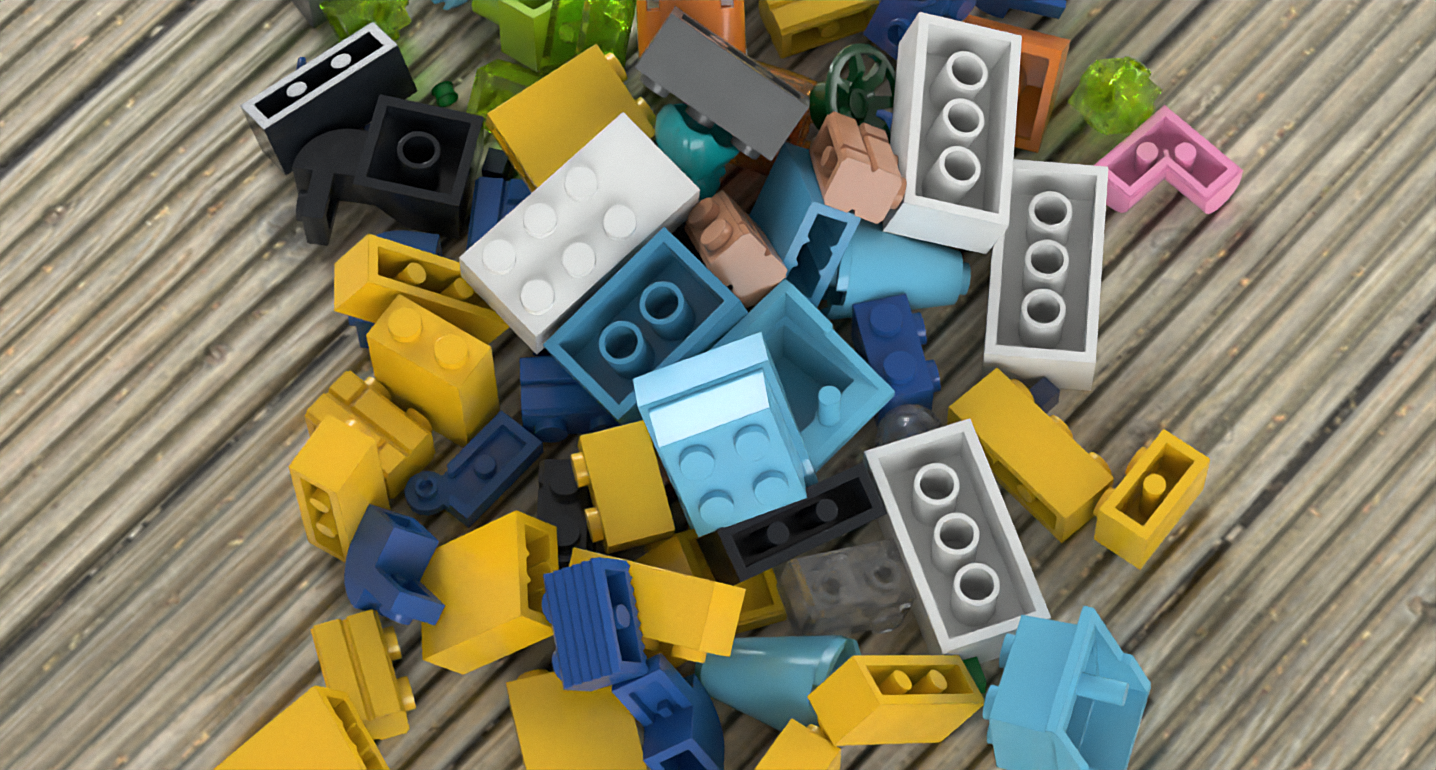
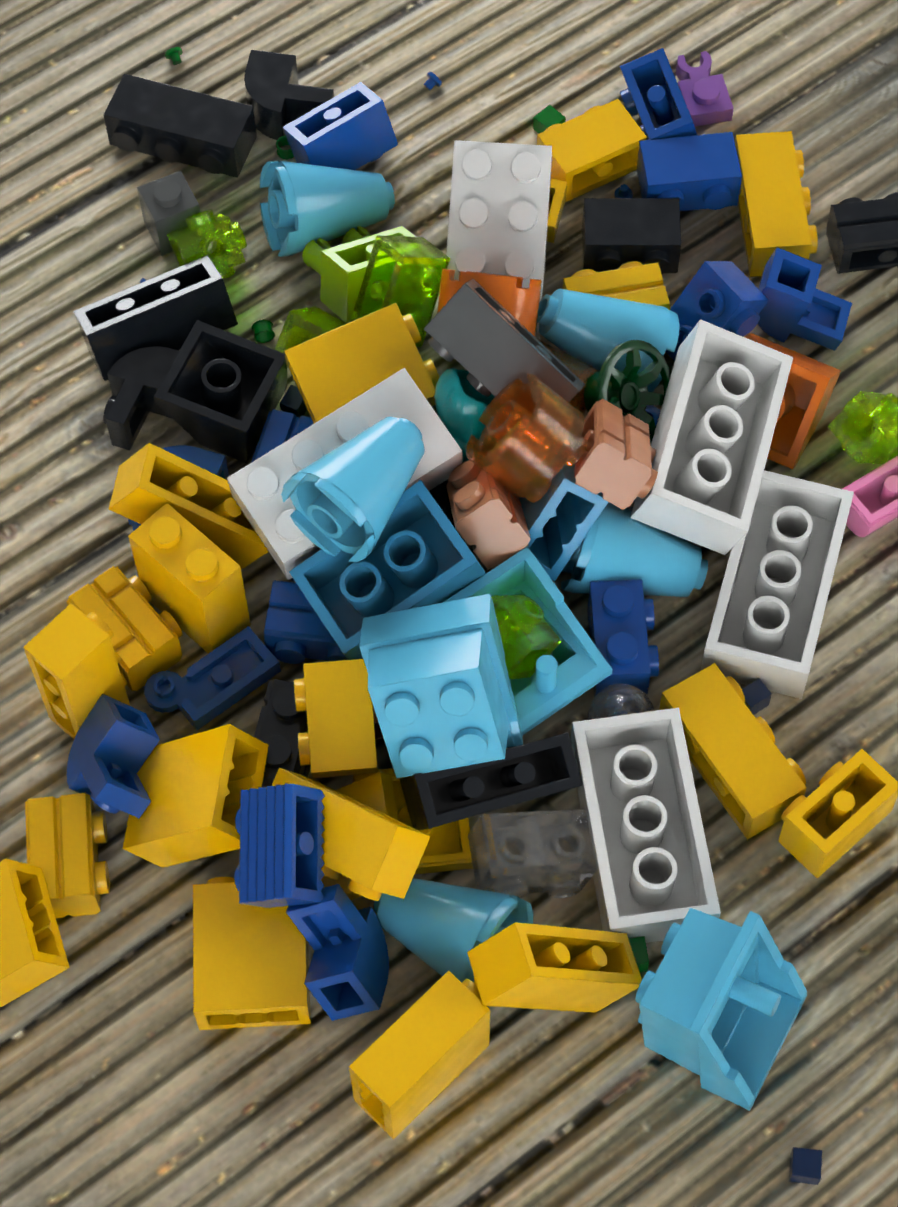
camera: 10 degrees right, 0 degrees up
(601, 246) = (355, 488): none -> medium azure cone
(765, 164) = (528, 437): none -> clear orange brick
(799, 368) = (523, 633): none -> clear neon green brick
(811, 33) = (595, 324): none -> medium azure cone

